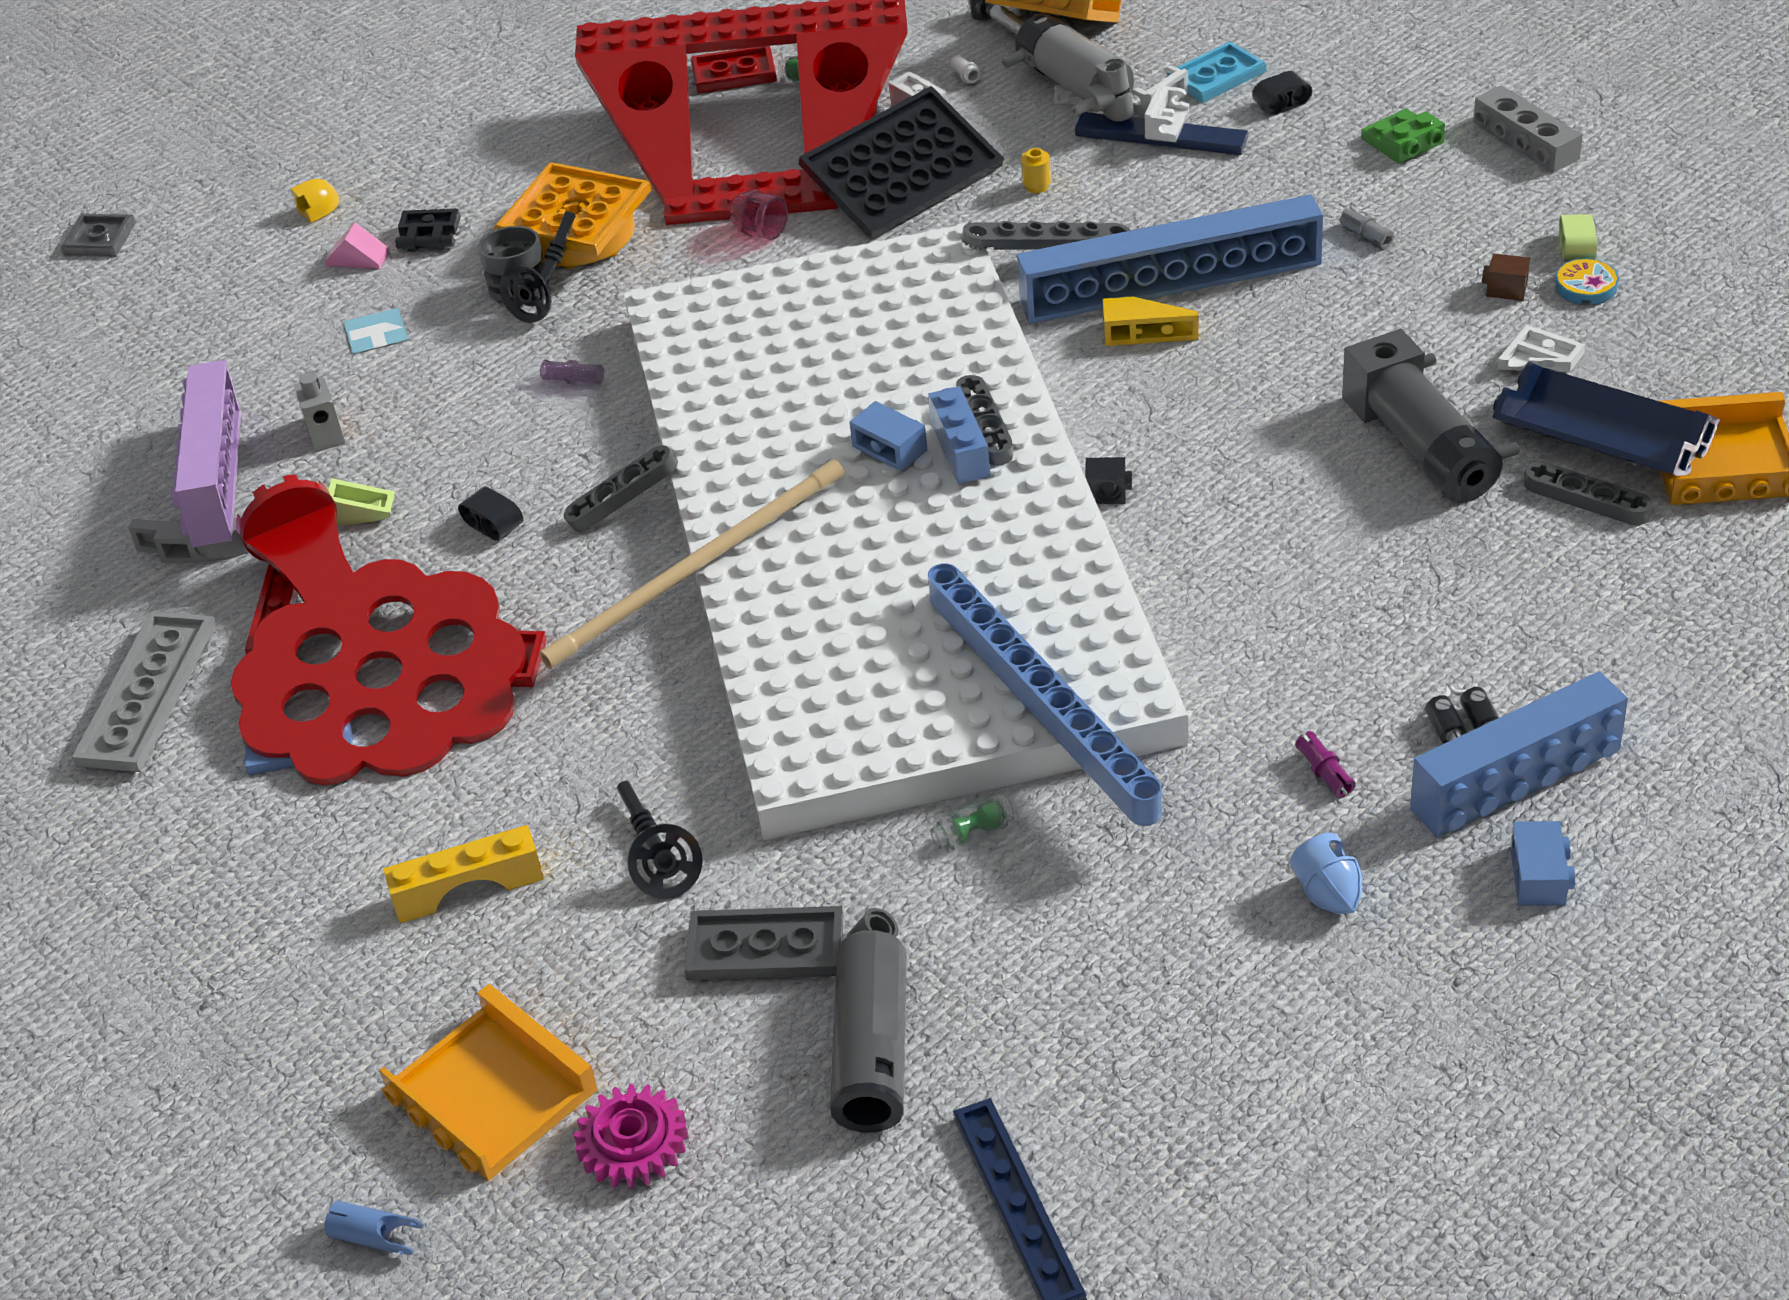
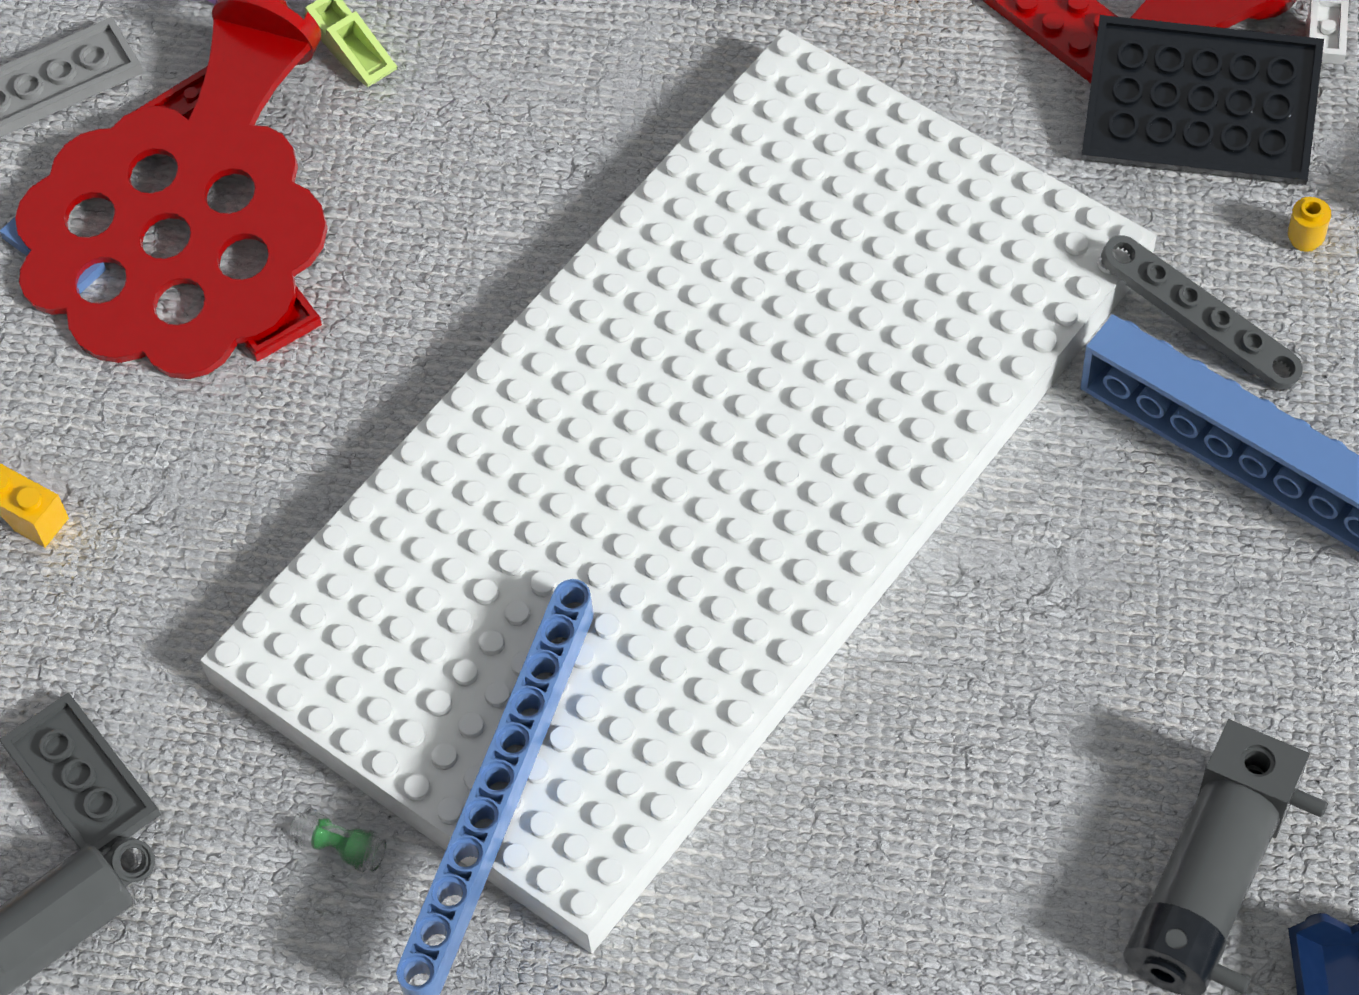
camera: 50 degrees right, 15 degrees up
(490, 513) = (427, 159): black beam -> none
(569, 644) = (635, 391): tan piece -> none
(571, 372) = (665, 71): clear purple pin -> none
(651, 469) = (561, 243): dark grey beam -> none
(658, 850) = (112, 622): black dish -> none
(758, 214) = (1013, 43): clear pink helmet -> none
(888, 436) = (745, 403): medium blue brick -> none
(959, 434) = (792, 462): medium blue brick -> none
(988, 418) = (851, 468): dark grey beam -> none
(1108, 479) = (886, 627): black brick -> none
(1146, 321) = (1153, 485): yellow slope -> none

